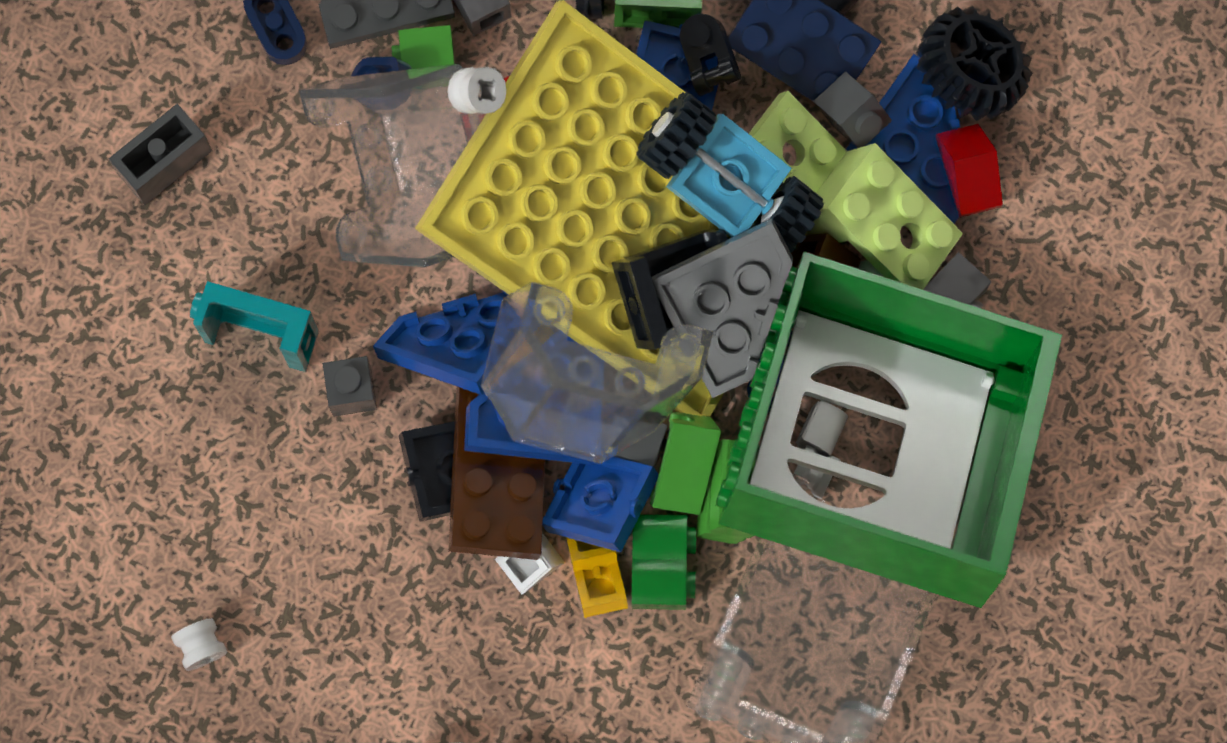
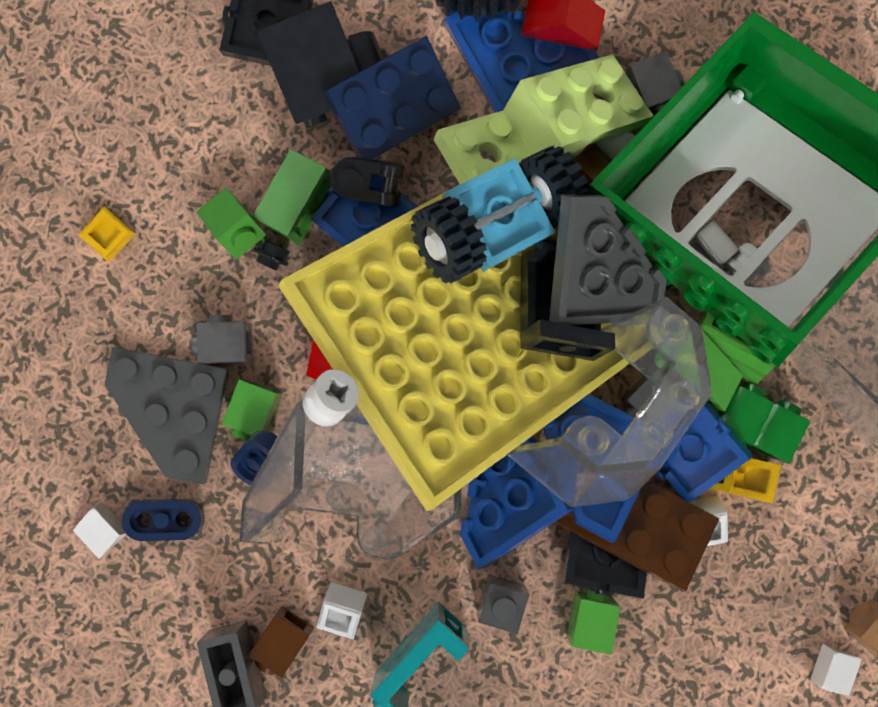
camera: 60 degrees left, 10 degrees up
(207, 190) = (280, 642): none -> reddish brown brick
(264, 238) = (341, 610): none -> white slope
(375, 487) = (593, 622): none -> bright green brick
(852, 110) = (472, 88): dark grey brick -> none

